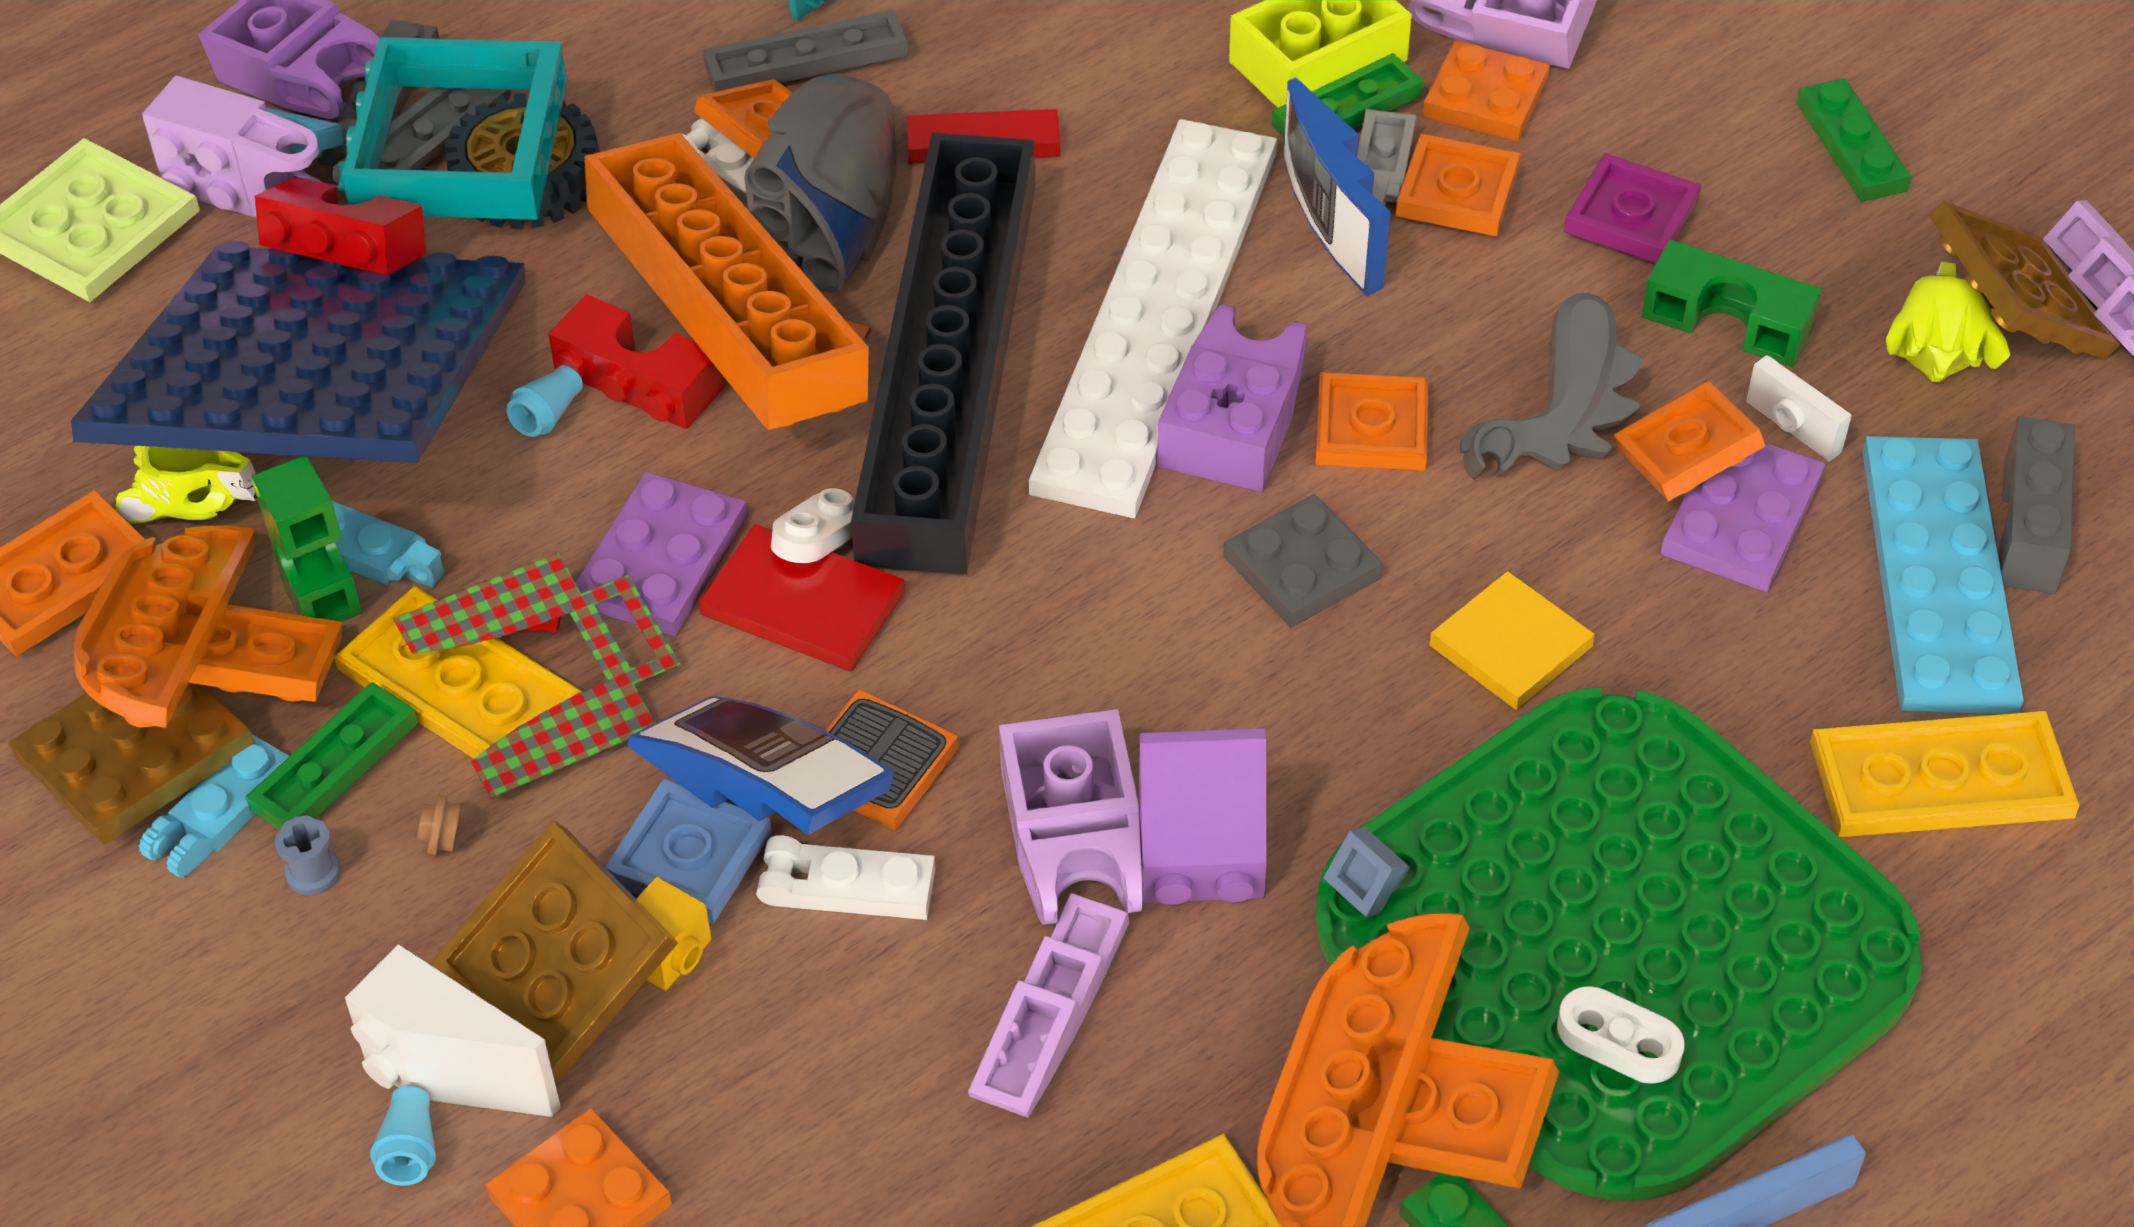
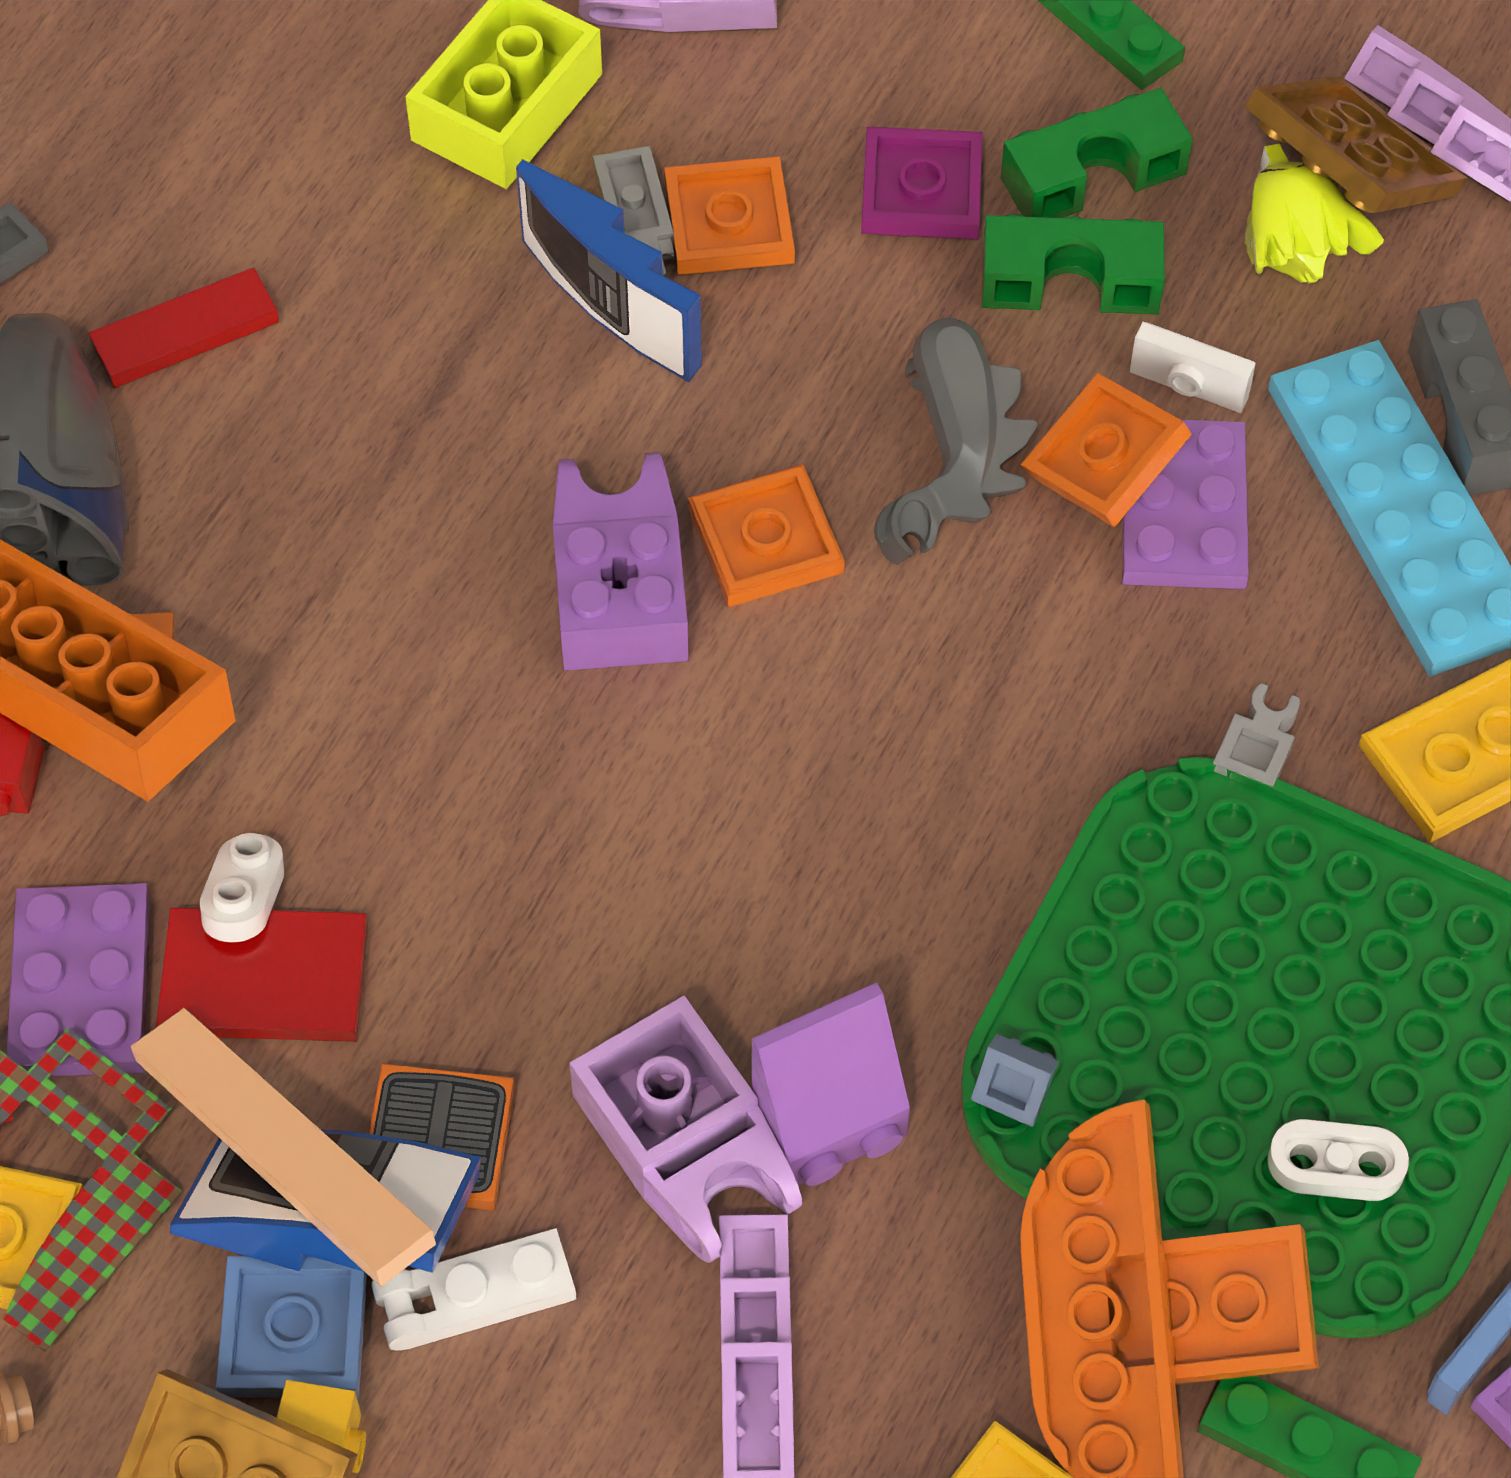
camera: 25 degrees left, 10 degrees up
(741, 706) = (284, 1147): none -> light nougat tile
(945, 356) = (286, 623): black brick -> none
(1153, 312) = (479, 492): white plate -> none
(1302, 560) = (770, 729): dark grey plate -> none
(1377, 86) = (580, 130): green plate -> none
(1486, 90) = (703, 85): orange plate -> none
(1511, 640) = (1023, 743): yellow tile -> none
(1718, 705) = (1258, 744): none -> light grey plate
(1831, 226) = (1134, 136): none -> green arch

